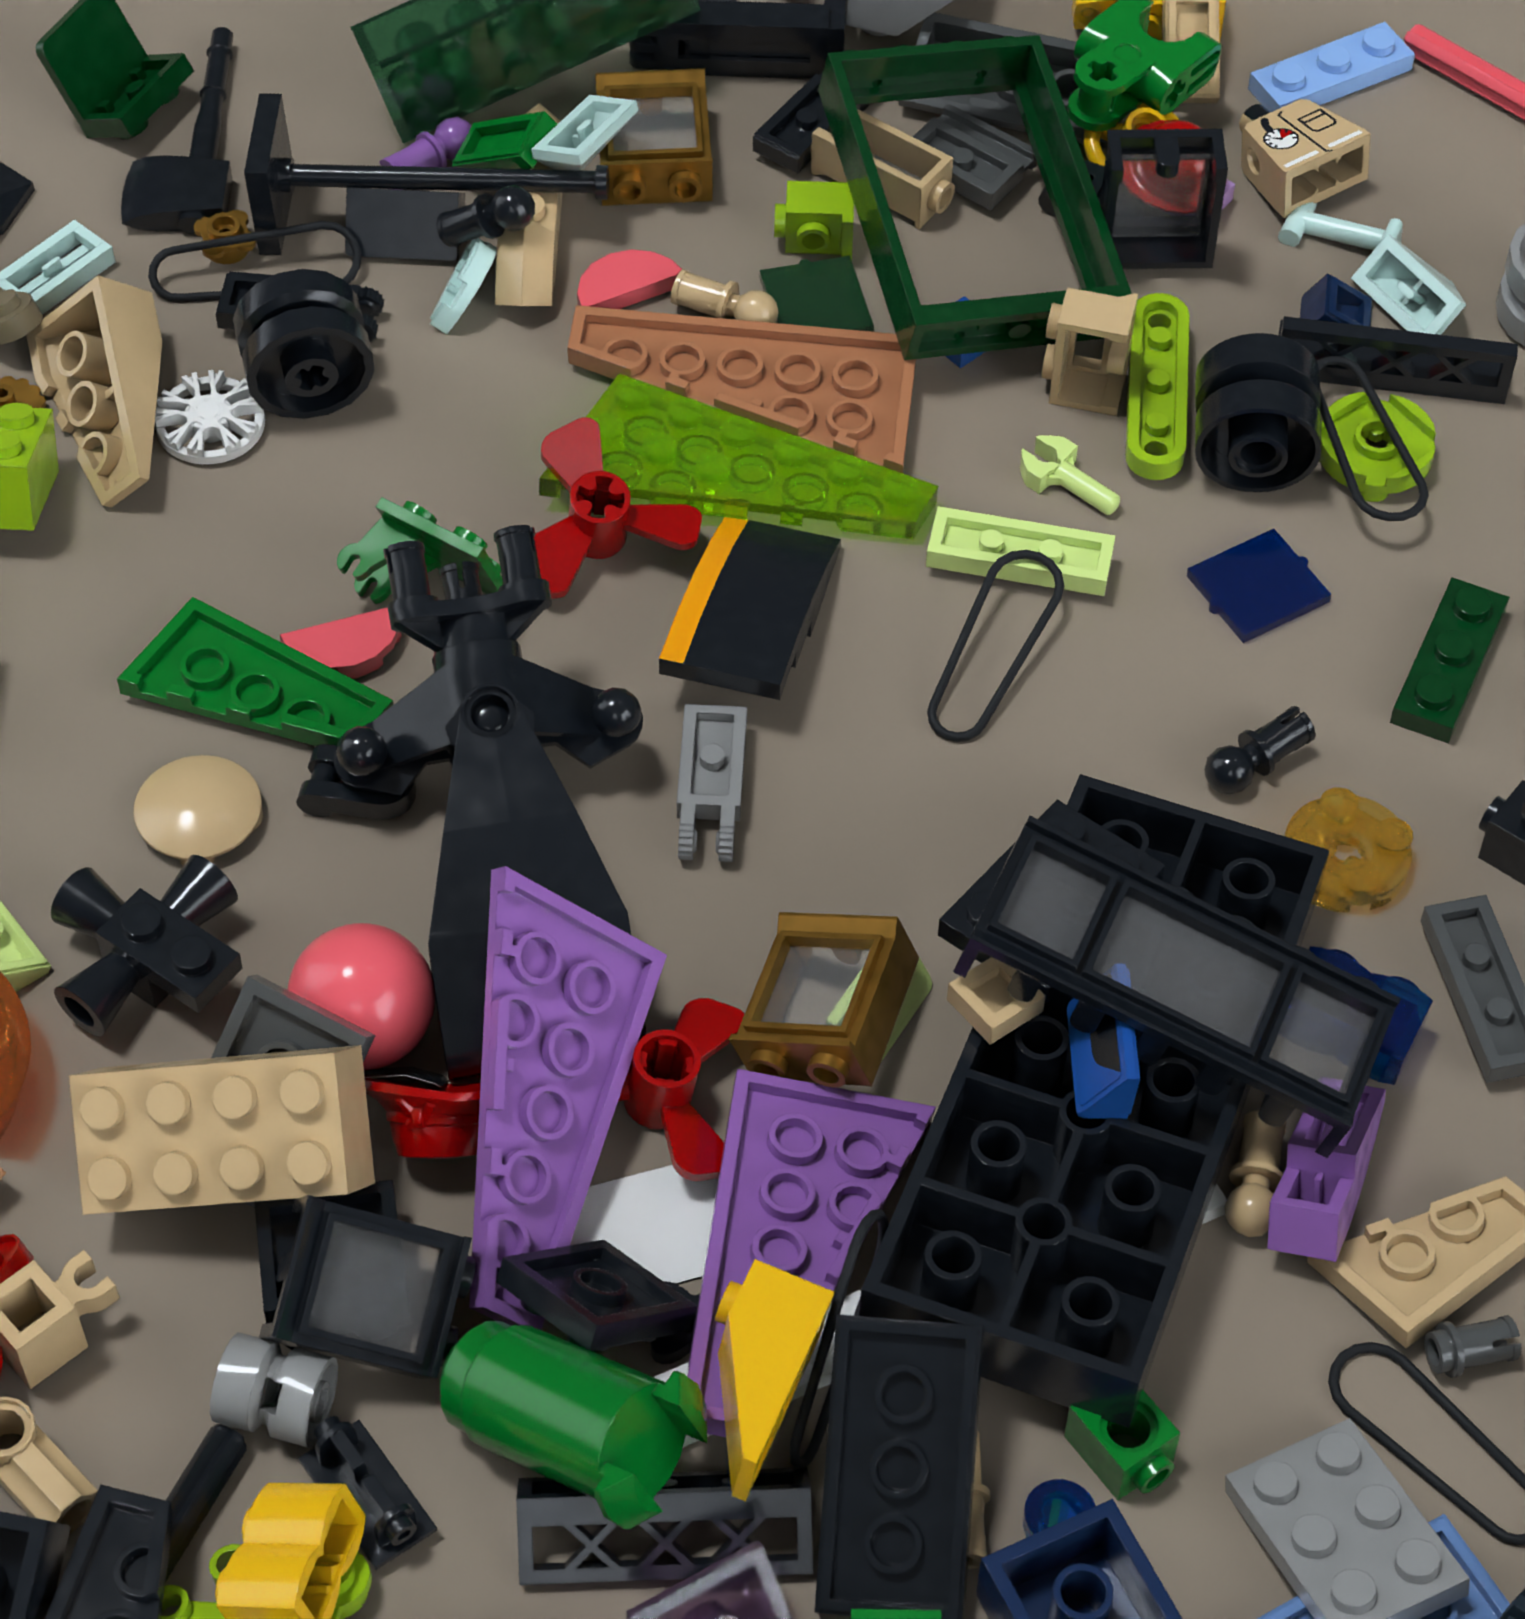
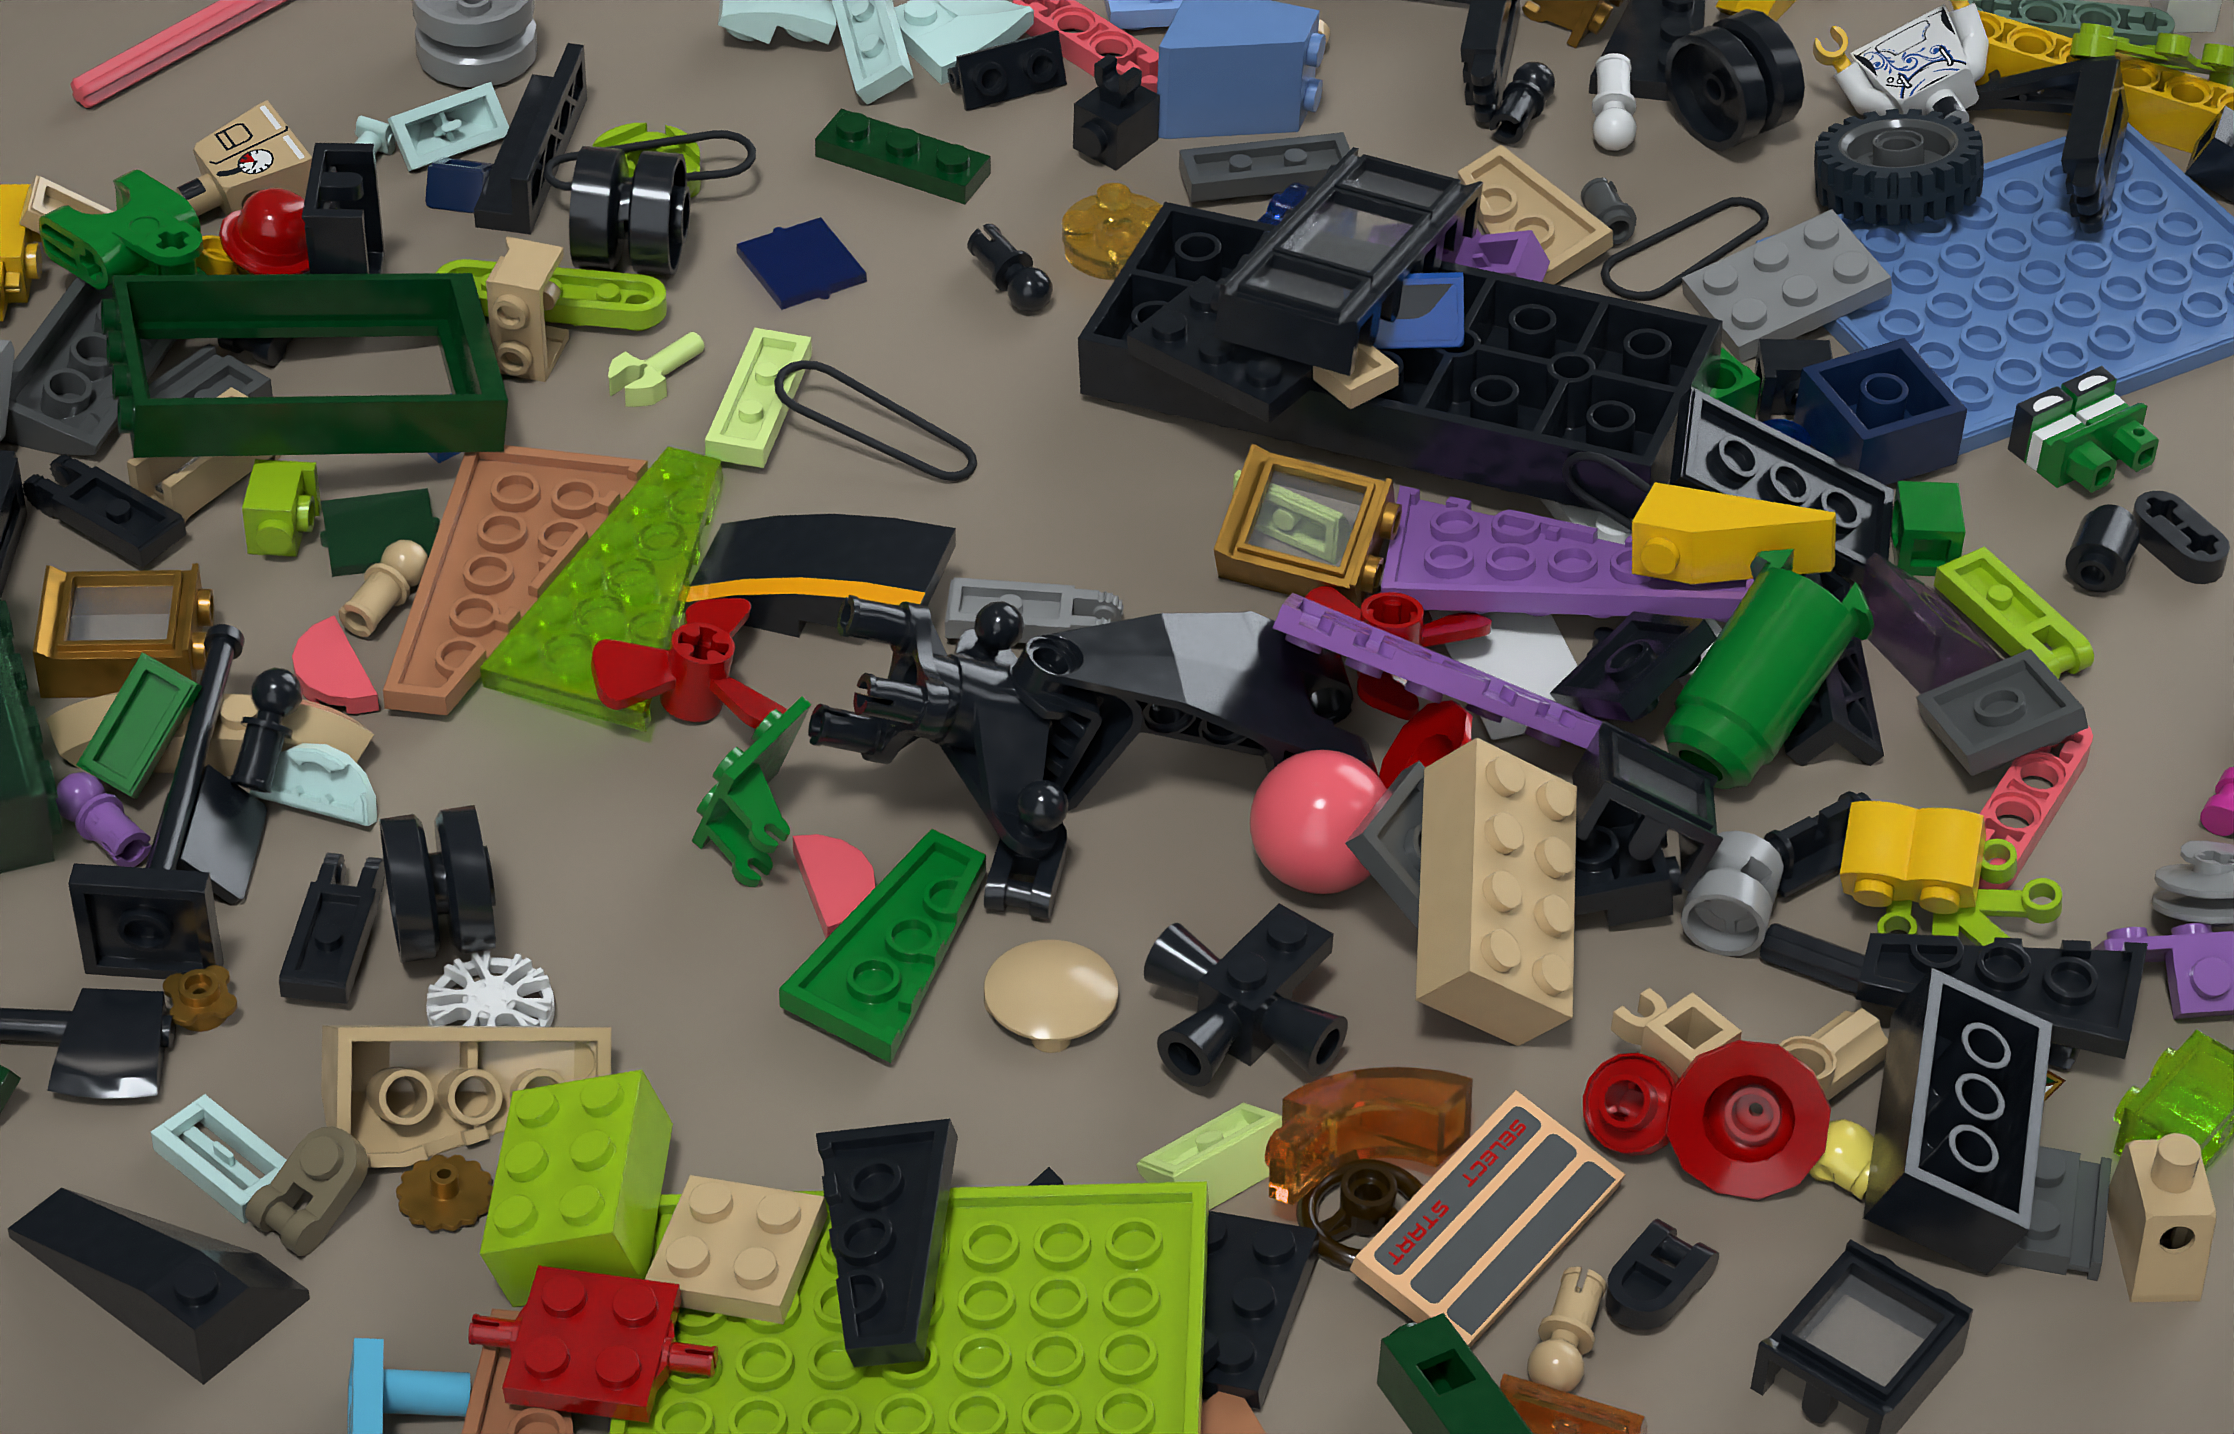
camera: 90 degrees left, 10 degrees down
(202, 296) = (226, 971): black piece -> none
(584, 132) = (164, 631): light aqua slope -> none
(1166, 1523) = (1780, 368): none -> black brick
(1333, 69) = (107, 140): light blue plate -> none

